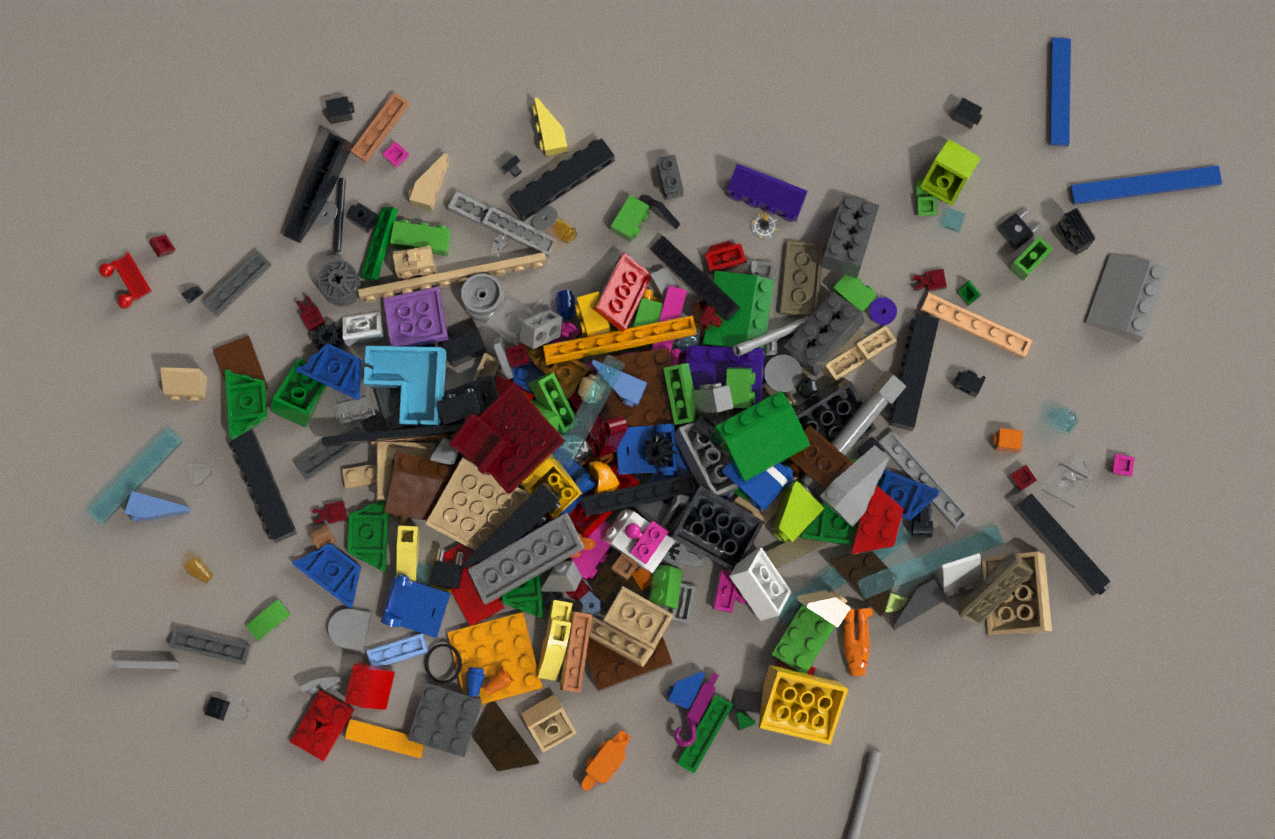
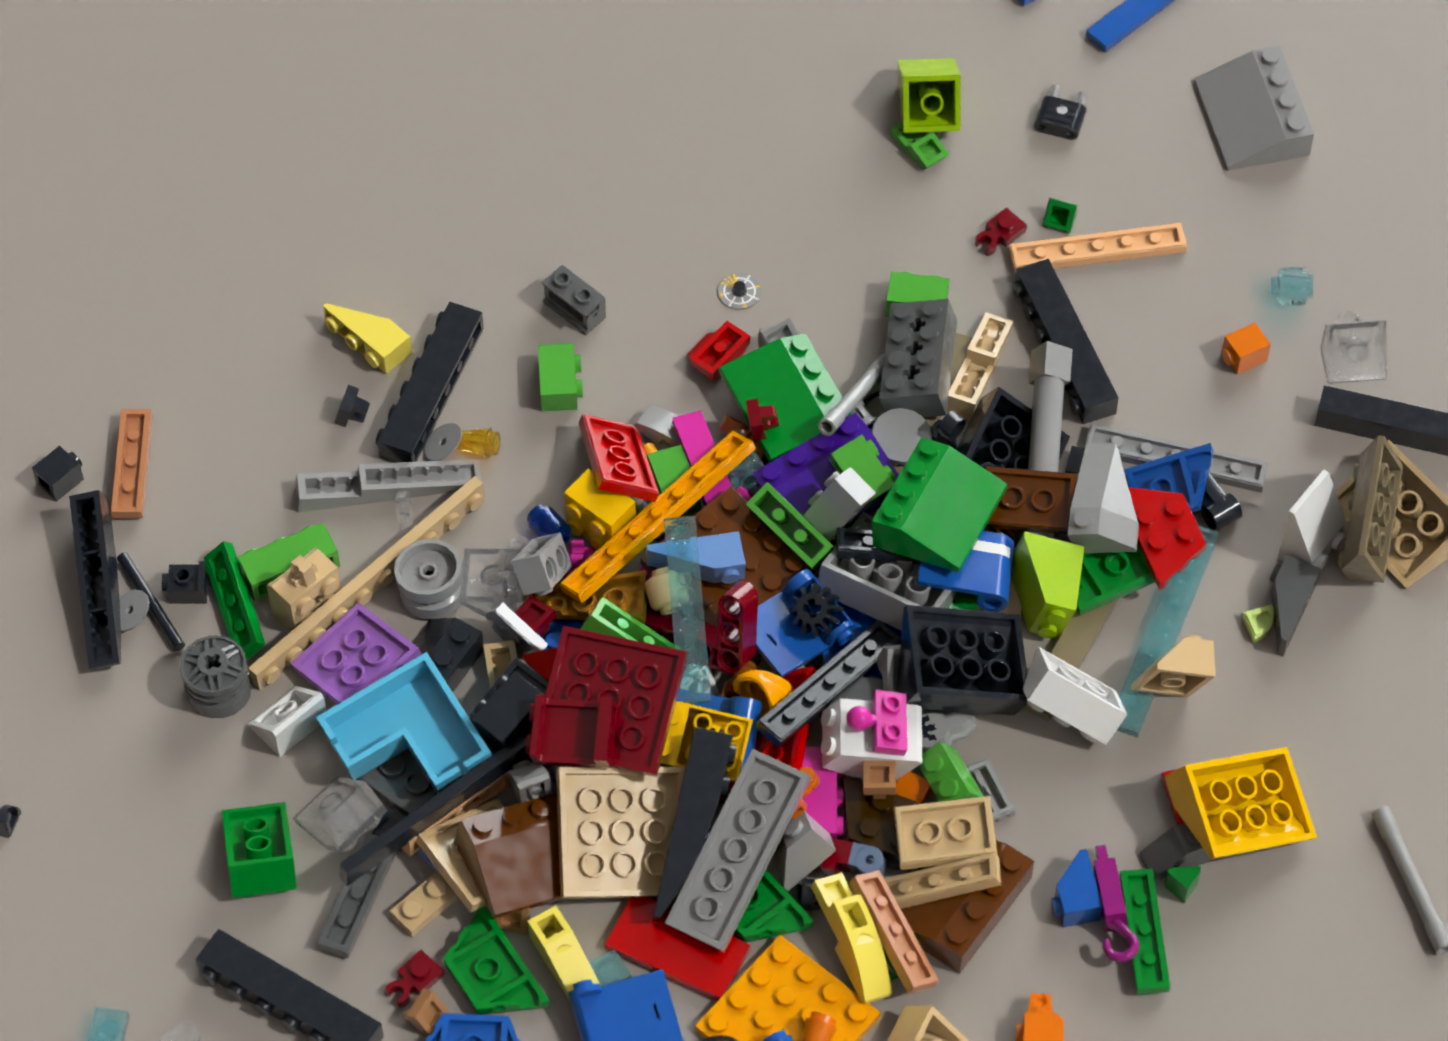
camera: 35 degrees left, 20 degrees down
(184, 384) = (79, 932): tan slope -> none
(237, 283) = (64, 768): dark grey plate -> none
(240, 359) = (147, 873): reddish brown tile -> none
(244, 403) = (189, 903): green wing -> none
(311, 316) = (204, 746): dark red plate -> none
(321, 336) = (259, 757): black gear -> none
(335, 369) = (290, 781): blue wing -> none
(395, 154) = (177, 483): dark pink plate -> none
(428, 185) = (251, 493): tan slope -> none
(445, 573) = (637, 948): black piece -> none
(661, 211) = (593, 345): black tile -> none
(695, 278) = (698, 390): black tile -> none
(726, 593) = (1033, 740): dark pink plate -> none
(766, 193) = (715, 243): dark purple slope -> none
(801, 278) = (835, 322): dark tan tile -> none
(803, 640) = (1178, 729): bright green plate -> none
(850, 236) = (862, 230): dark grey brick -> none
(858, 650) = (1258, 703): orange piece -> none
(860, 566) = (1200, 608): dark brown wing -> none
(883, 311) = (969, 297): dark purple piece -> none
(929, 562) = (1257, 550): clear light blue tile -> none
(953, 220) = (973, 149): clear light blue tile -> none
(967, 113) = (896, 23): black brick -> none
(969, 382) = (1143, 313): black brick -> none
(1023, 478) = (1298, 380): dark red plate -> none
(1031, 258) = (1105, 131): bright green brick -> none
(1075, 231) = (1135, 70): black brick -> none
(1122, 465) = (1406, 295): dark pink plate -> none

